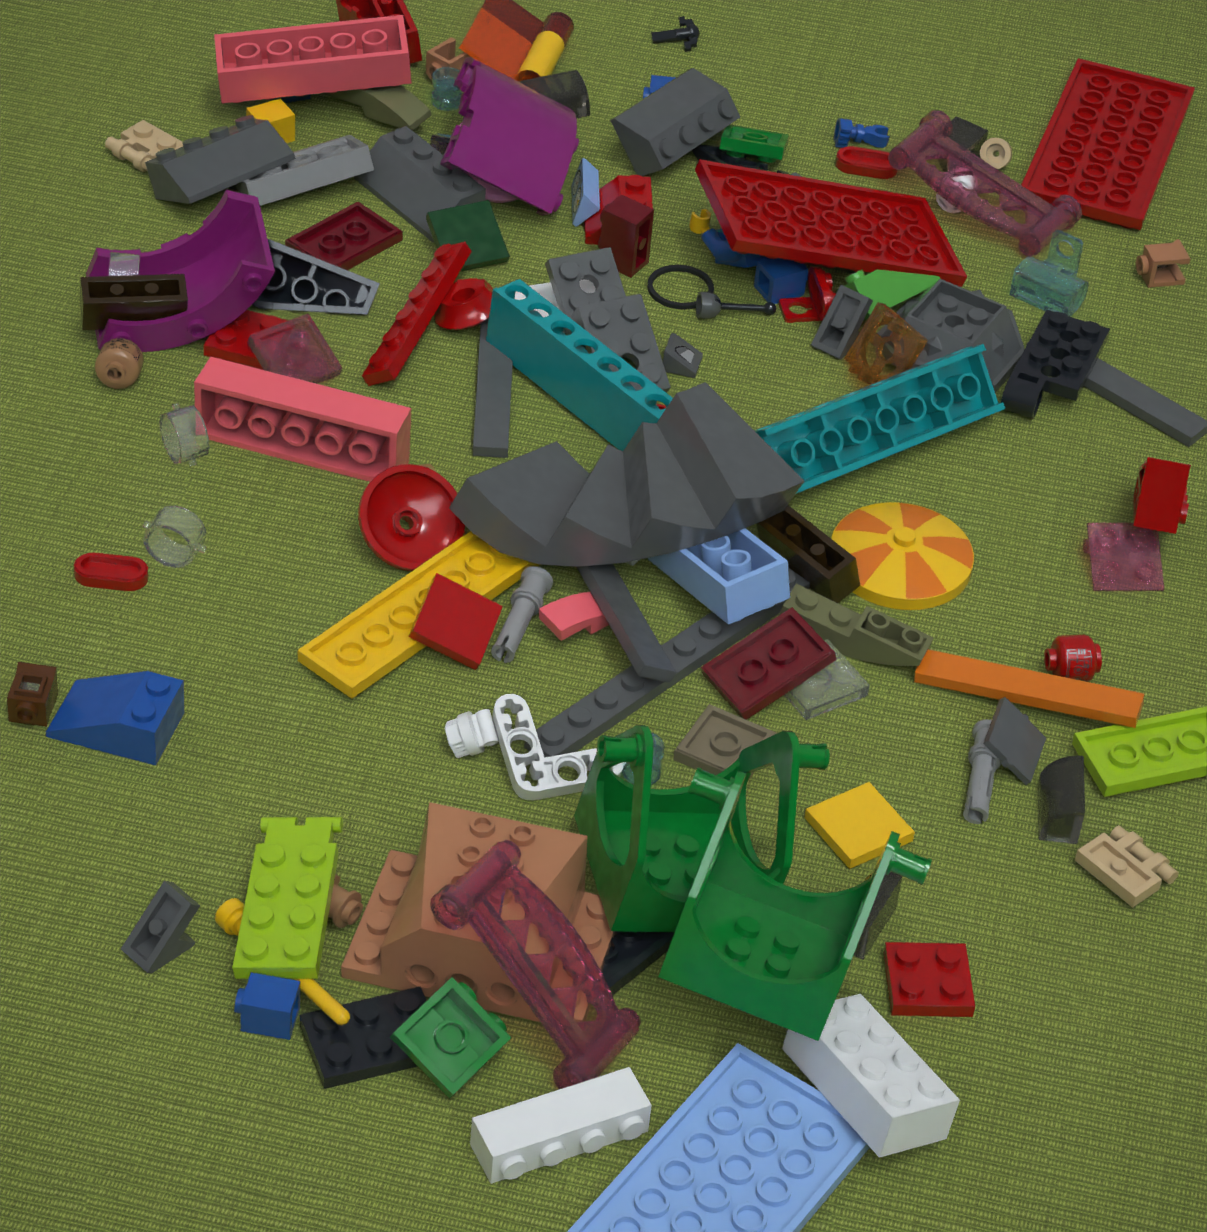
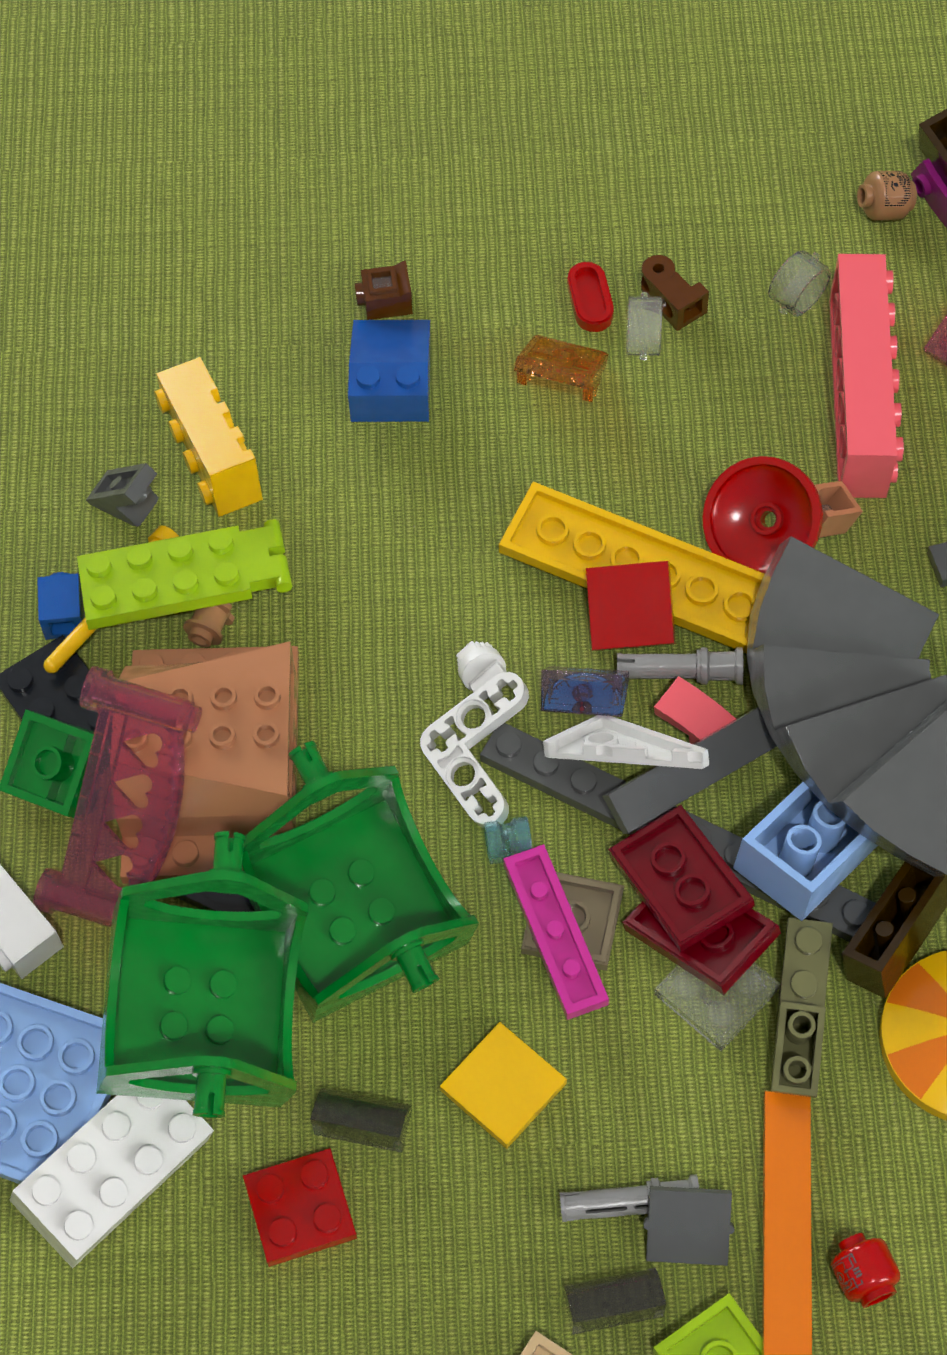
camera: 80 degrees right, 20 degrees up
(126, 518) = (679, 300): none -> reddish brown leg
(134, 849) = (211, 439): none -> yellow wedge
(183, 599) = (560, 366): none -> clear orange piece
(520, 671) = (584, 690): none -> slope
(586, 661) = (623, 742): none -> white wing
(724, 743) = (555, 932): none -> dark pink plate
(726, 655) = (681, 878): none -> dark red tile

